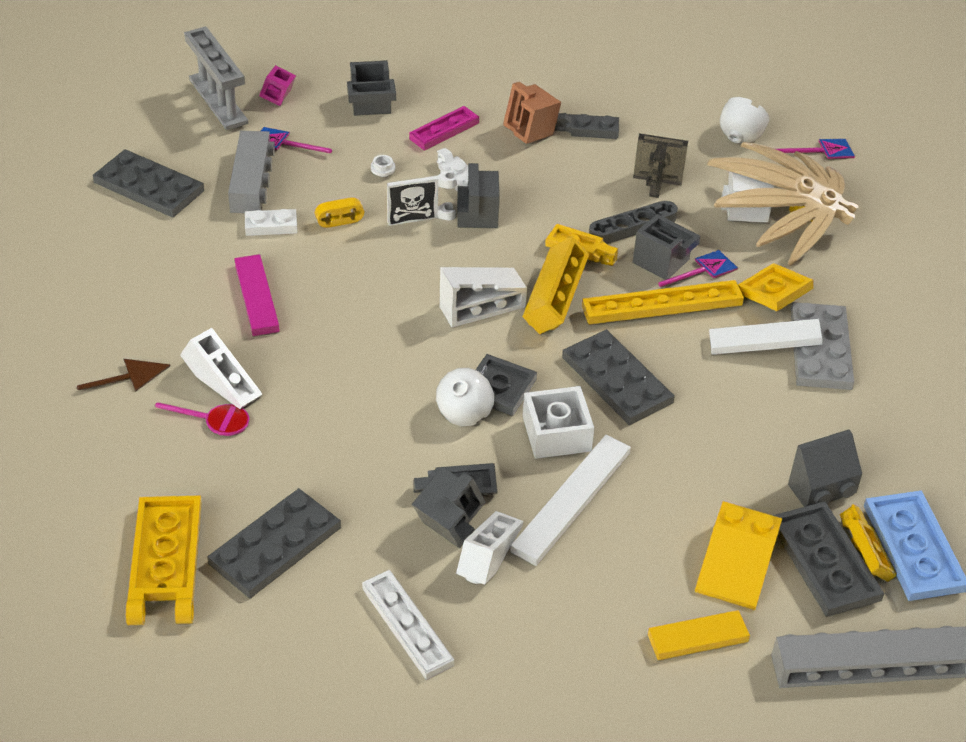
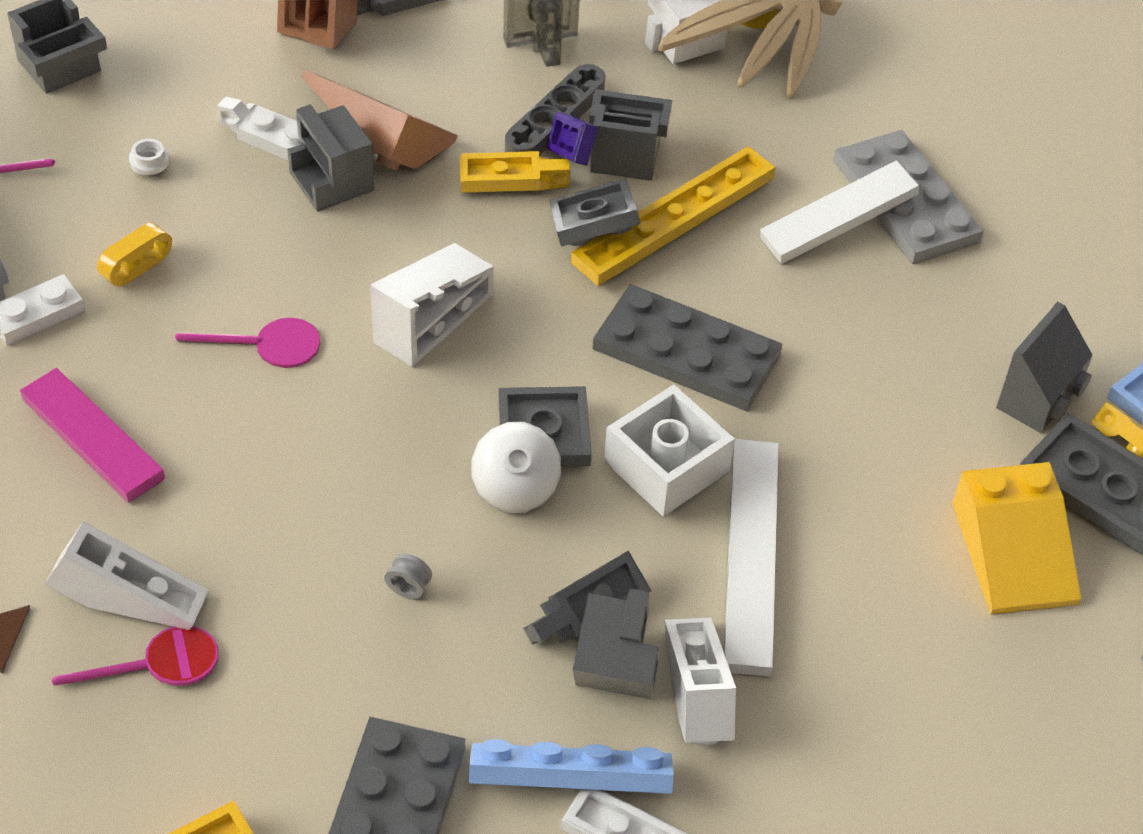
camera: 30 degrees left, 5 degrees up
(368, 428) = (408, 576): none -> light grey bush
(387, 288) = (280, 343): none -> dark pink piece
(394, 562) = (573, 768): none -> light blue plate
(418, 199) = (249, 189): white flag -> none
(444, 128) = (196, 66): dark pink tile -> none
(522, 194) = (393, 133): none -> nougat wedge
(556, 285) = (526, 247): yellow brick -> none
(609, 281) = (594, 213): none -> dark grey plate
(625, 237) = (572, 138): none -> dark purple plate
(698, 635) = (1041, 675): yellow tile -> none
(713, 263) = (694, 132): piece -> none
(775, 286) = (804, 135): yellow plate -> none

